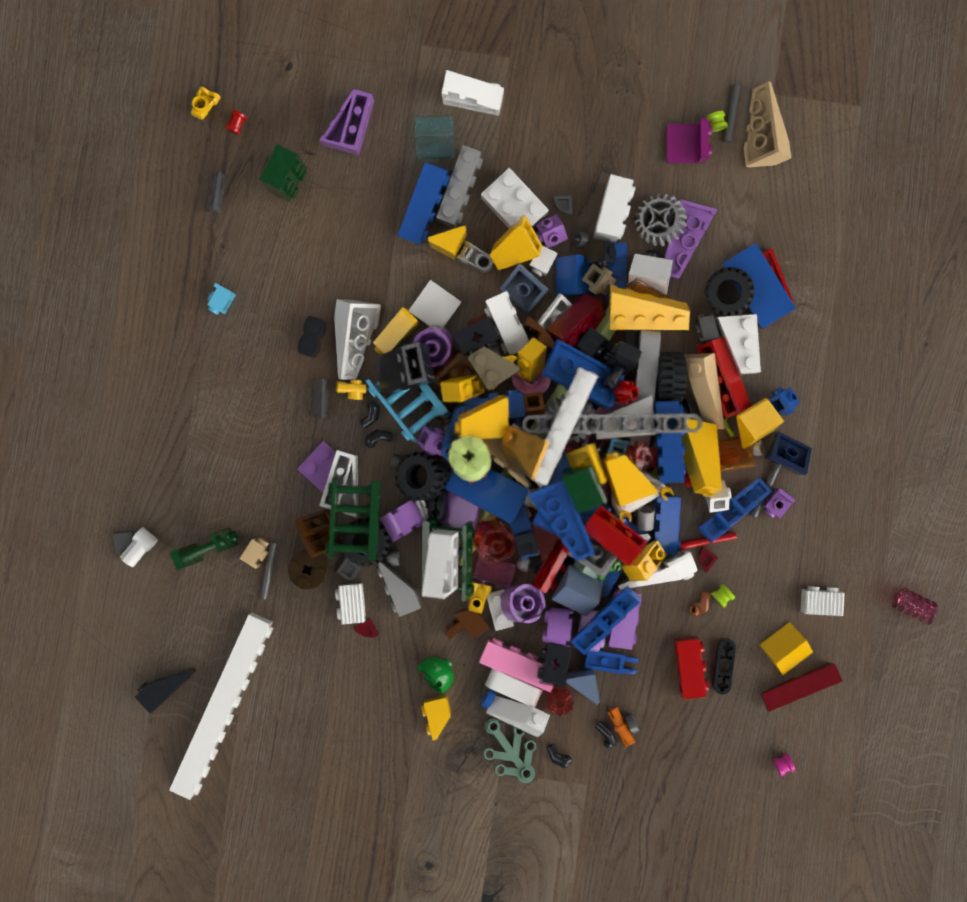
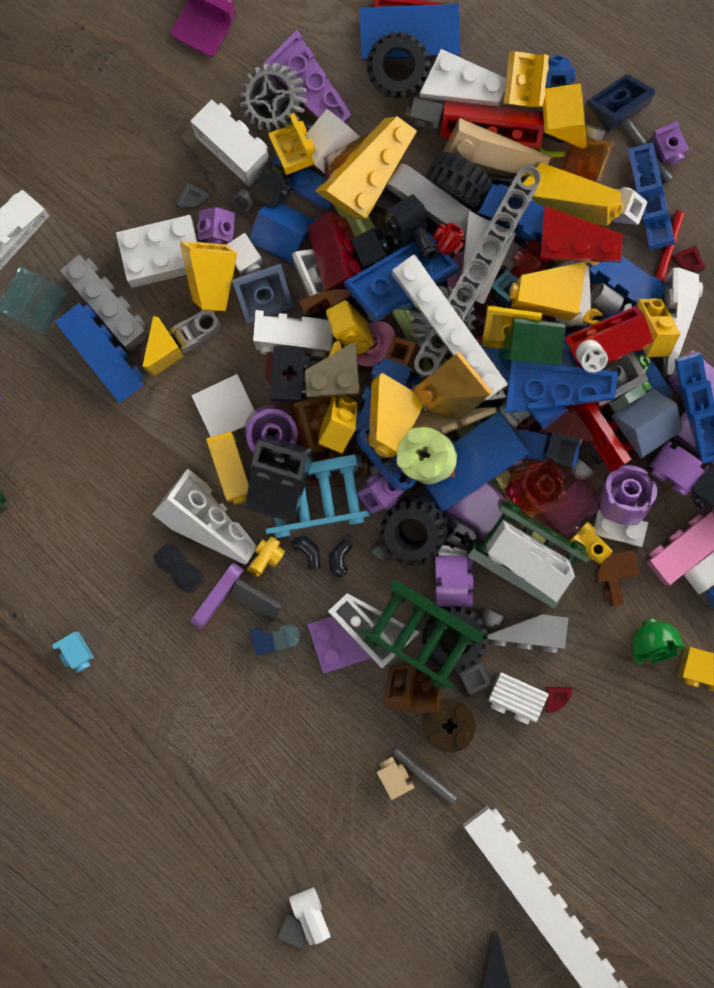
camera: 55 degrees left, 5 degrees down
(193, 554) = (354, 856): dark green fence -> none
(300, 425) = (284, 638): none -> leg
(308, 371) = (217, 596): none -> medium lavender beam
(591, 533) = (595, 361): none -> white wheel
(599, 279) = (302, 202): dark tan brick -> none
(632, 252) = (292, 146): none -> yellow bracket
(670, 479) = (578, 240): none -> red wing
(766, 383) = (526, 79): none -> yellow bracket

